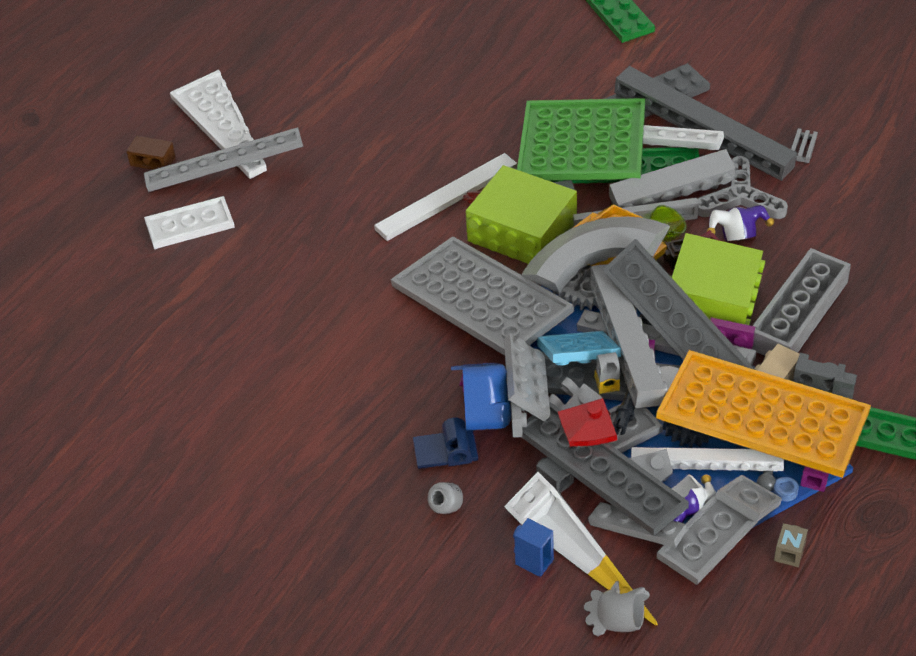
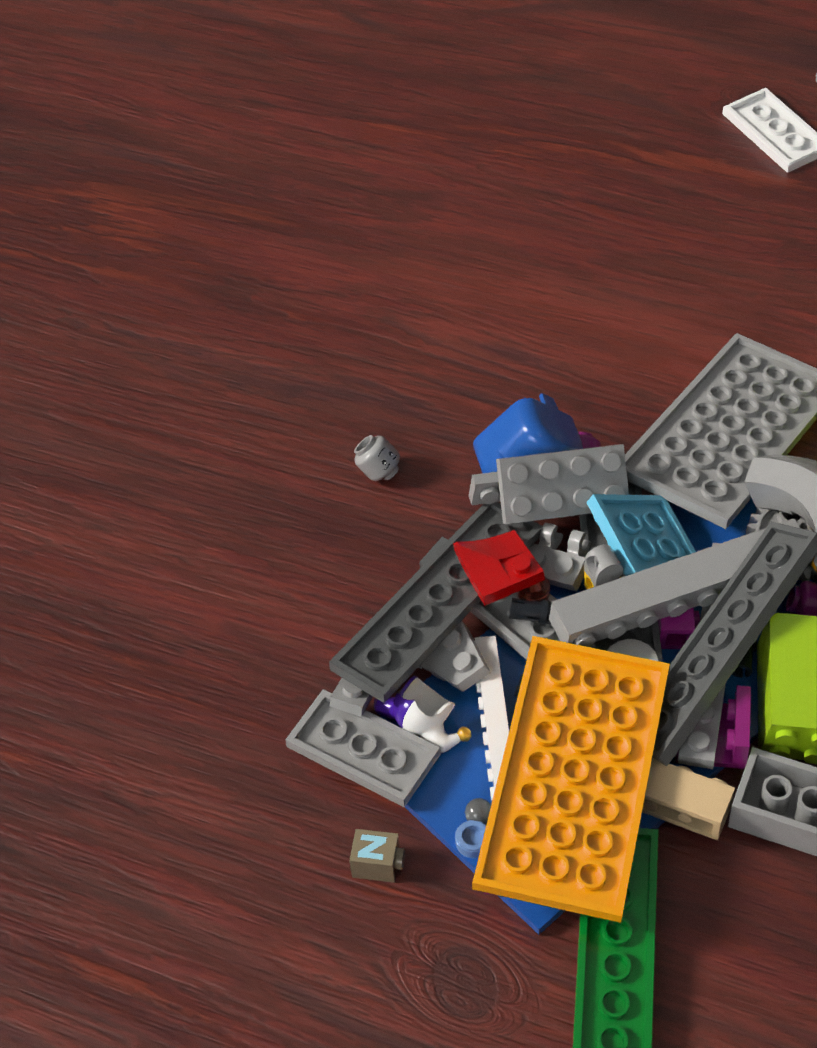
camera: 80 degrees right, 5 degrees up
(448, 448) = (456, 447): dark blue piece -> none
(533, 547) = (308, 555): blue piece -> none
(546, 506) = (369, 569): white plate -> none
(616, 610) = (231, 664): light grey piece -> none
(748, 498) = (435, 786): light grey tile -> none
(825, 376) = (685, 872): dark grey hips -> none

